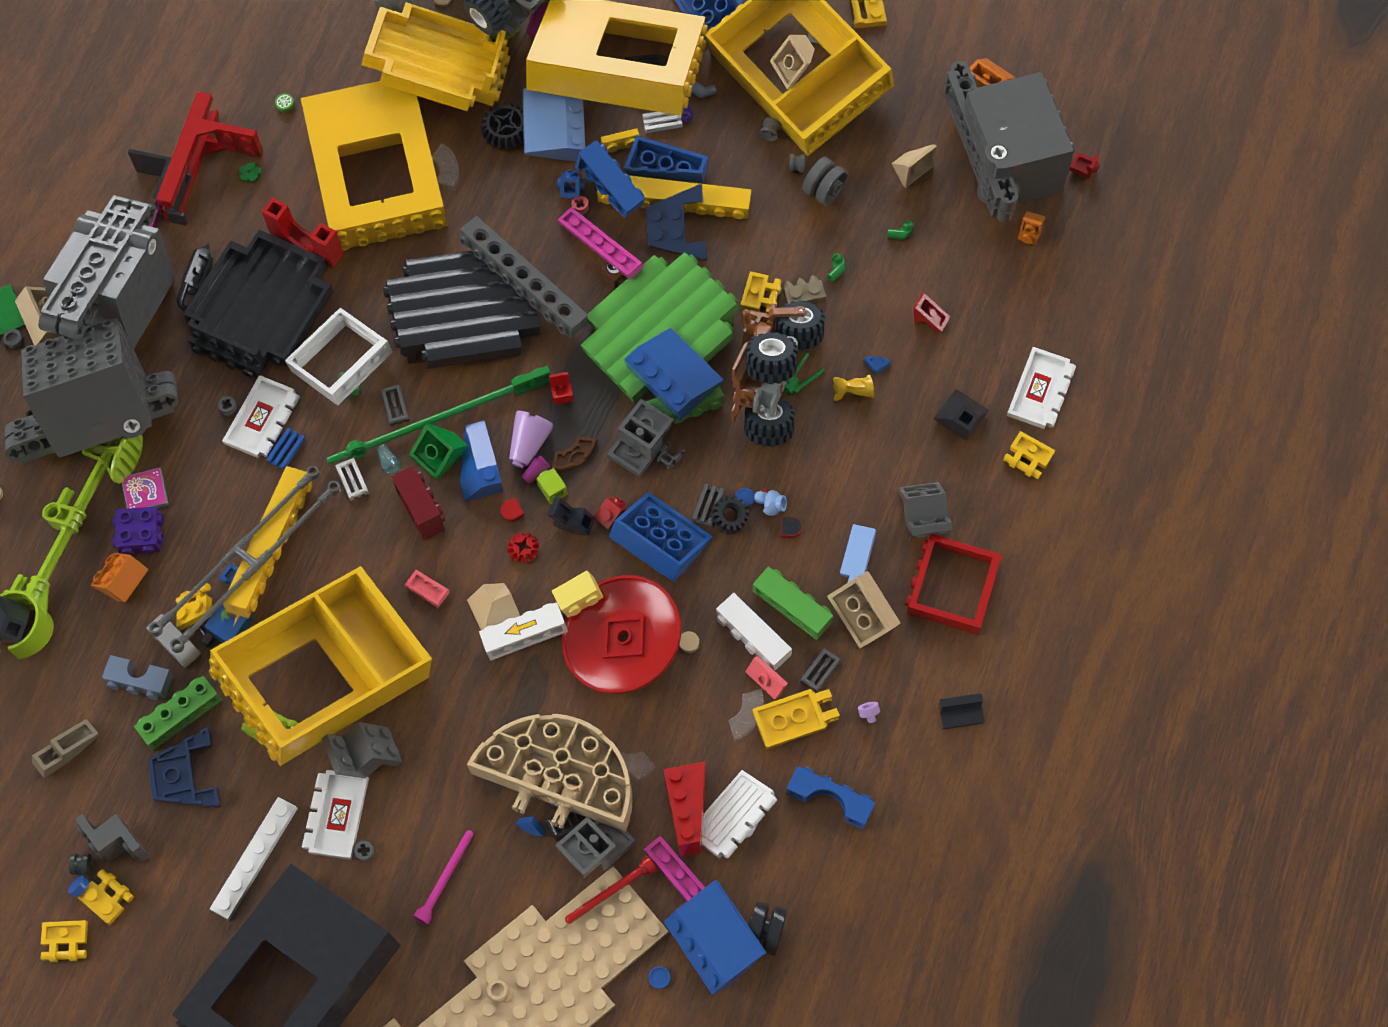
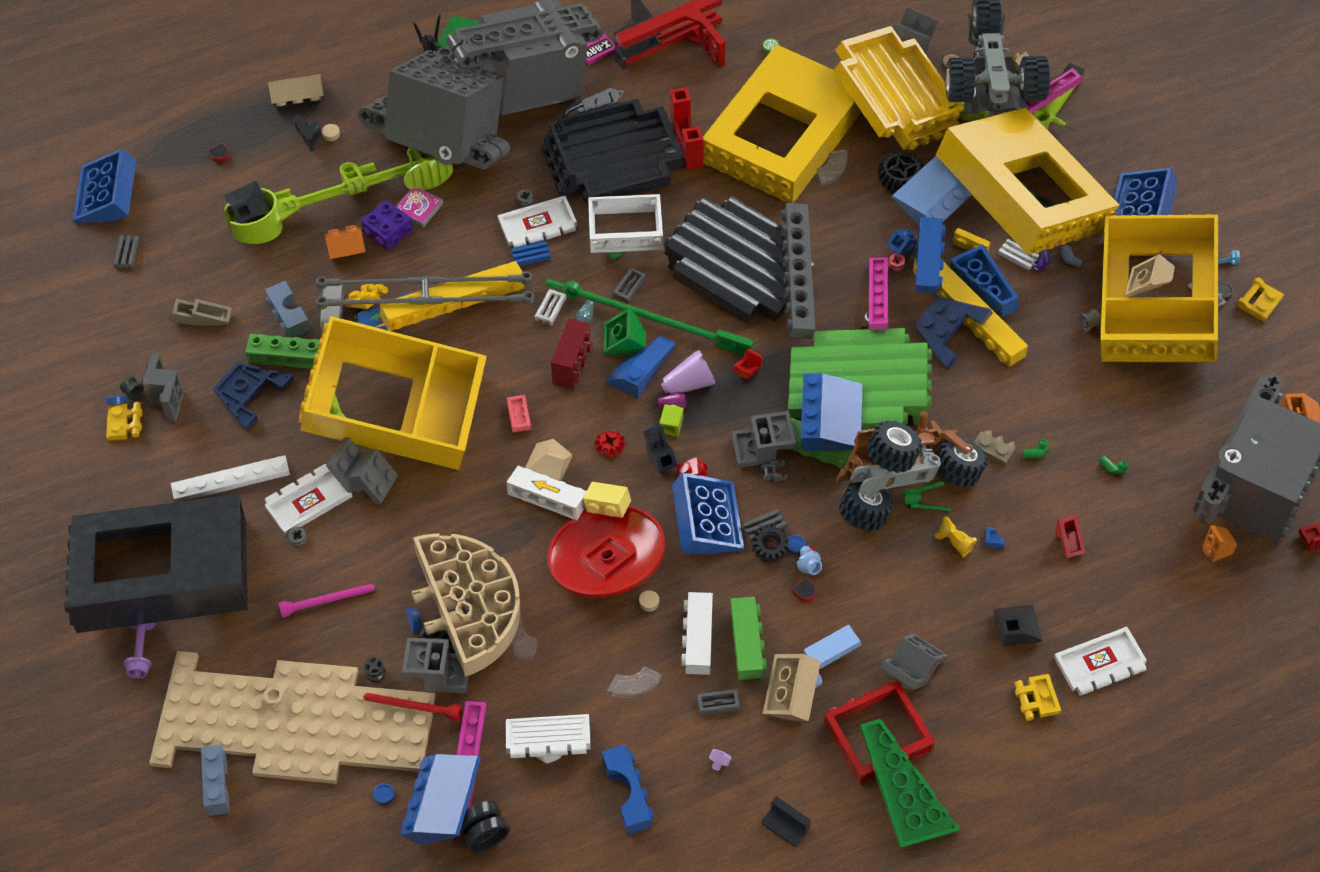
camera: 45 degrees right, 10 degrees down
(64, 933) = (77, 419): yellow plate -> none
(250, 172) = (700, 71): green plant -> none
(511, 510) = (628, 413): red tile -> none
(546, 888) = (371, 665): none -> pearl dark grey wheel
(575, 455) = (710, 416): reddish brown tile -> none
(686, 799) = (522, 698): red wedge -> none
(755, 289) = (958, 415): yellow plate -> none
(766, 677) = (673, 670): coral plate -> none
(793, 717) = (662, 713): yellow tile -> none
(796, 163) = (1085, 357): dark grey wheel -> none
(825, 181) = (1089, 383): dark grey wheel -> none
(914, 164) = (1174, 428): tan slope -> none
(1024, 611) = (907, 796): none -> green wing

